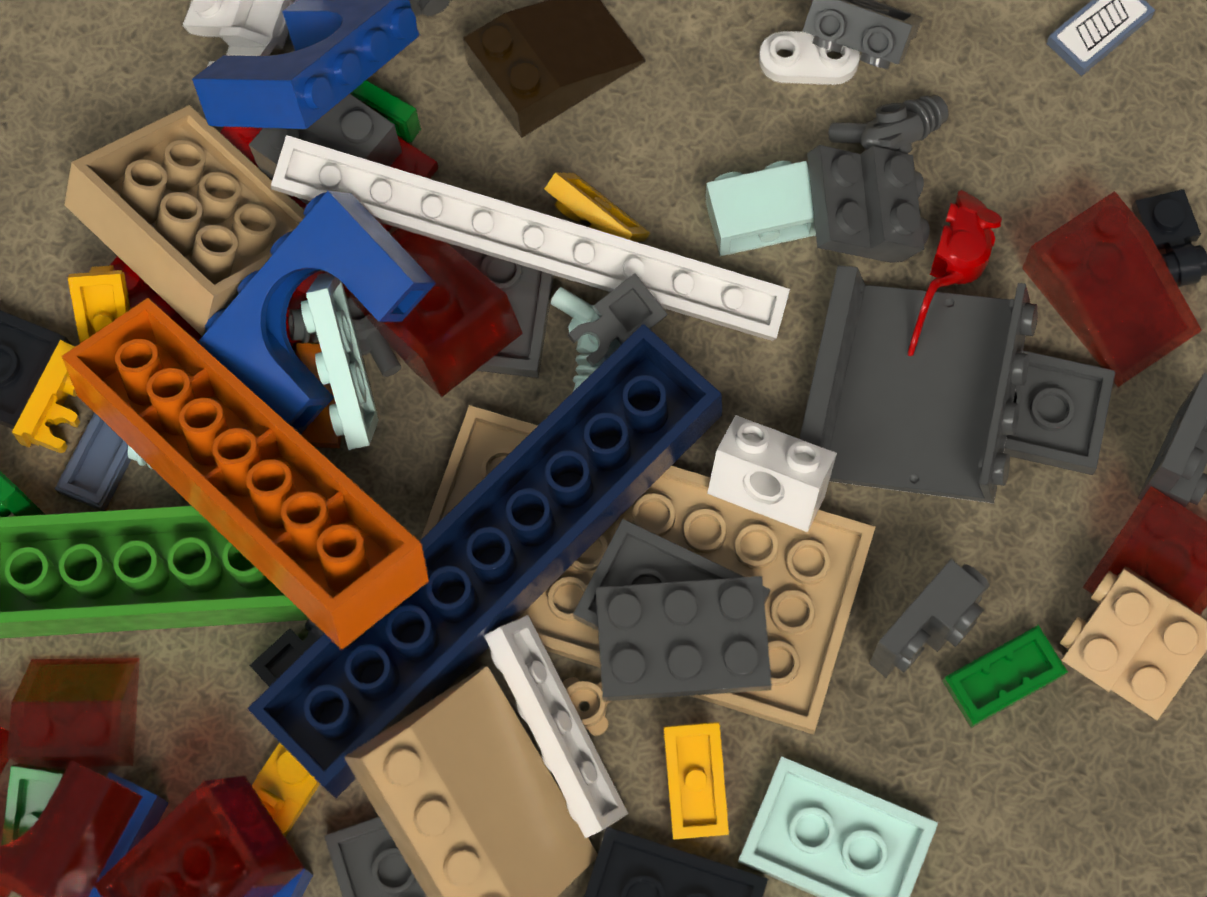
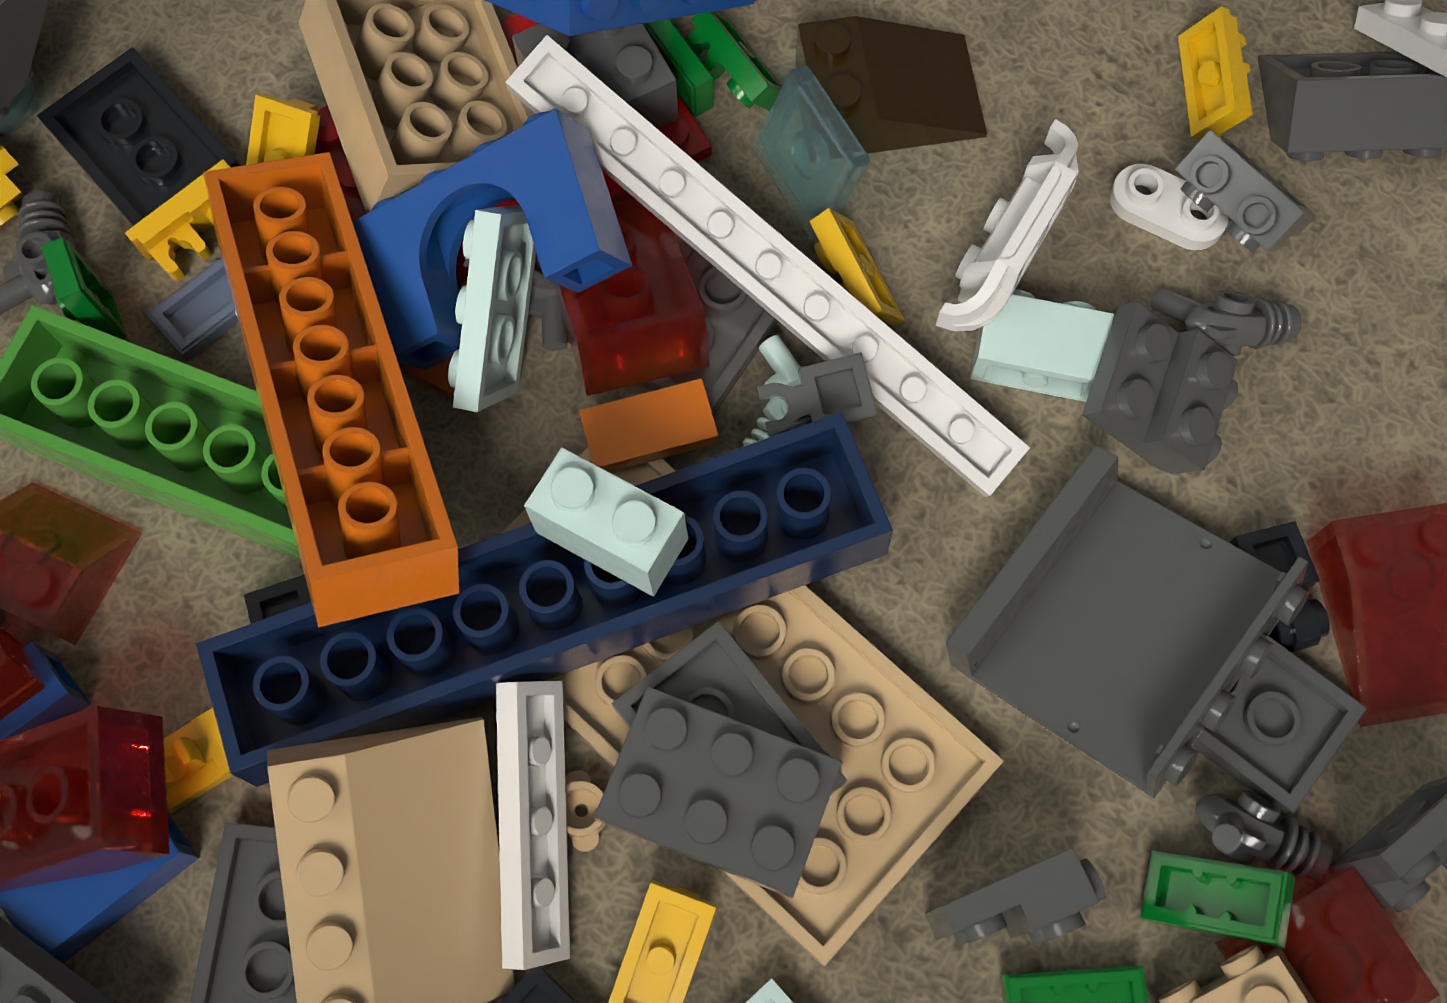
camera: 20 degrees right, 0 degrees up
(414, 79) = (730, 52): none -> green plate
(498, 400) = (649, 426): none -> orange tile
(514, 479) = (607, 521): none -> light aqua brick
(519, 134) = (809, 149): none -> clear light blue tile
(706, 130) = (1016, 235): none -> white plate
(771, 473) = (911, 646): white brick -> none
(962, 250) = (1245, 492): red animal -> none
(1002, 283) = (1280, 549): none -> black plate
(1068, 552) = (1218, 898): none -> green plate
(1071, 494) = (1250, 829): none -> dark grey piece

